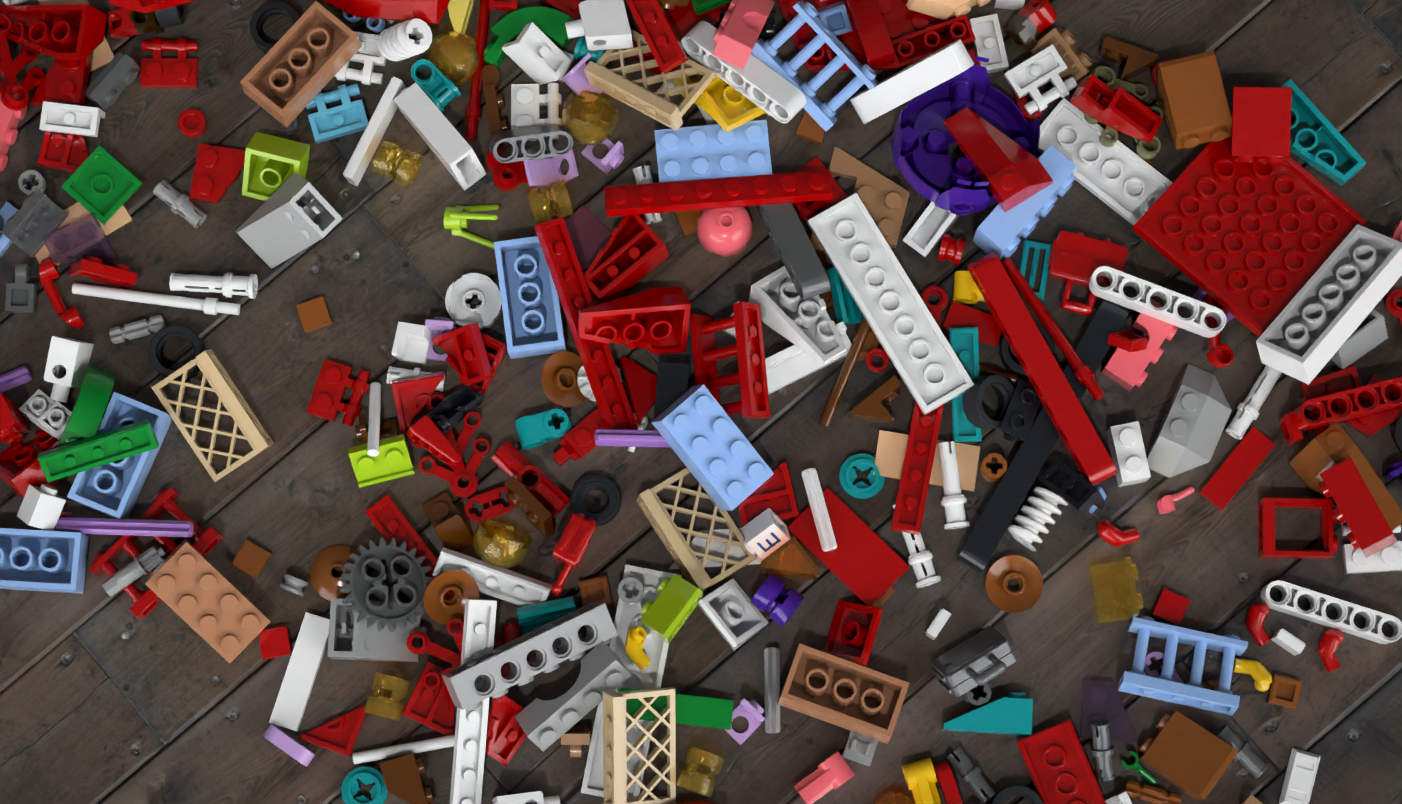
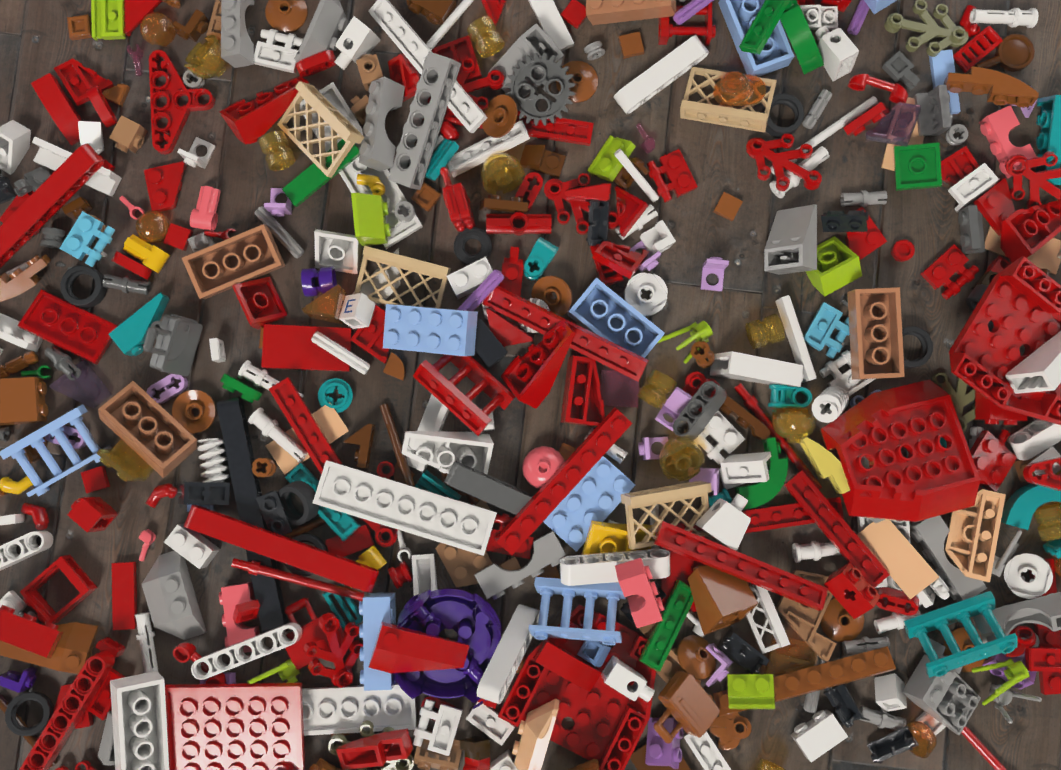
camera: 135 degrees right, 5 degrees up
(196, 410) = (739, 89): none -> clear orange piece
(213, 186) = (839, 222): none -> black hinge
(223, 308) = (781, 161): none -> red plant
(252, 500) = (661, 74): none -> white beam
(329, 444) = (649, 143): none -> clear pink hand
(381, 264) = (715, 266): none -> lavender bracket
(468, 191) = (701, 355): none -> dark orange bush
(533, 769) = (369, 69): none -> medium nougat brick
(626, 467) = (470, 277): none -> white brick
(779, 451) = (395, 367): none -> dark orange tile
(795, 146) = (496, 579): none -> light grey arch
(830, 737) = (224, 235): none -> red hand
(877, 778) = (178, 237): none -> red tile
(927, 274) = (402, 546): none -> white hand
(953, 577) = (232, 384): none -> green plate
(1024, 626) = (169, 393): none -> lavender beam
(1072, 601) = (147, 429): none -> nougat brick
(1090, 207) = (342, 674): none -> red plant
(1139, 259) = (286, 671): none -> lime plant
(1198, 568) = (92, 513): none -> red brick

